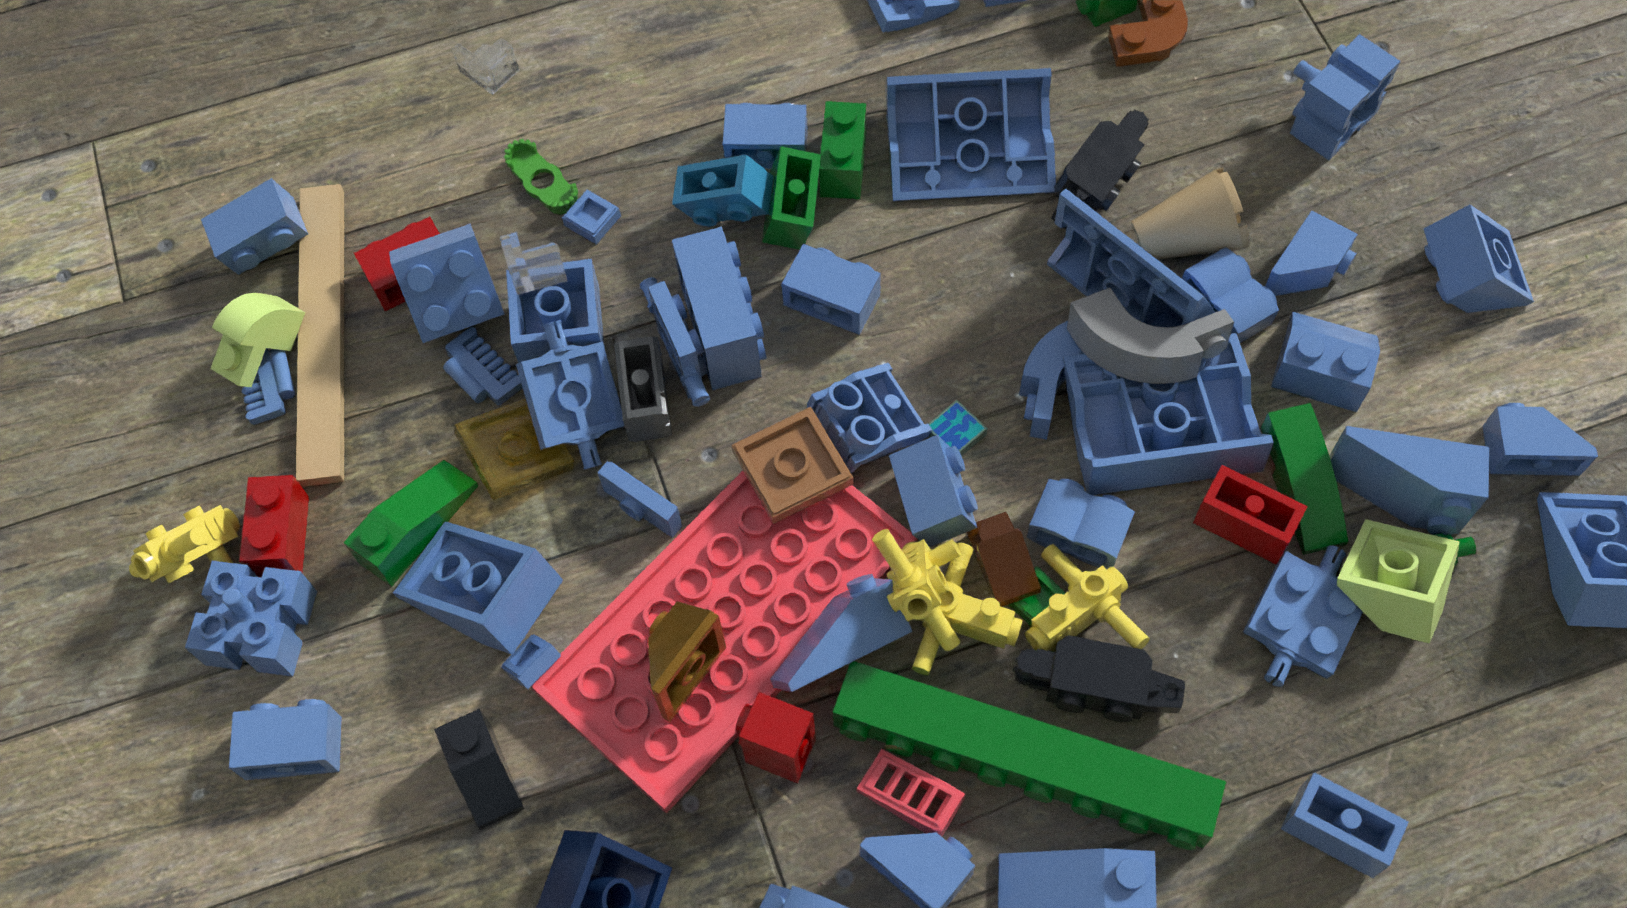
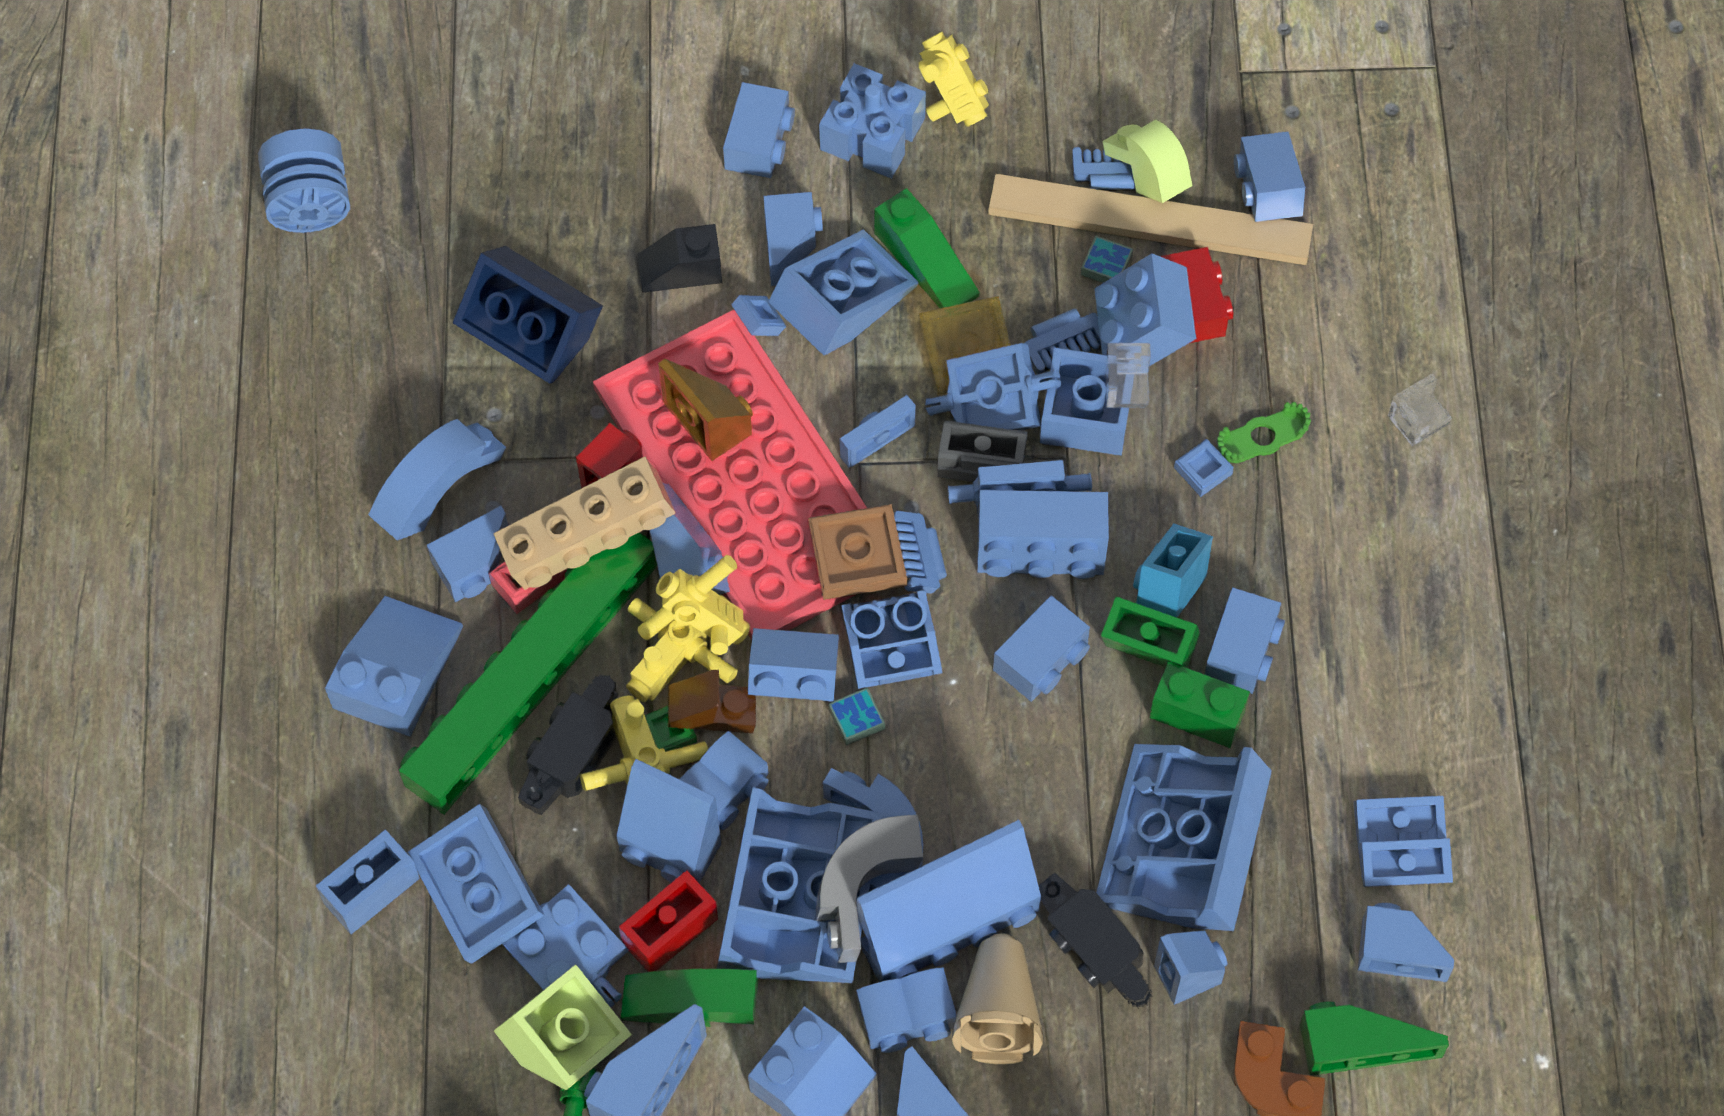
camera: 105 degrees right, 0 degrees up
(274, 524) = (951, 148): red brick -> none
(380, 354) = (1105, 259): none -> tile
(418, 663) = (790, 230): none -> medium blue slope
(762, 418) = (925, 553): none -> medium blue piece
(867, 727) = (584, 524): none -> tan brick
(1094, 93) = (1189, 964): none -> medium blue slope
(1161, 539) = (667, 824): none -> medium blue slope
(1290, 717) = (475, 884): none -> medium blue plate

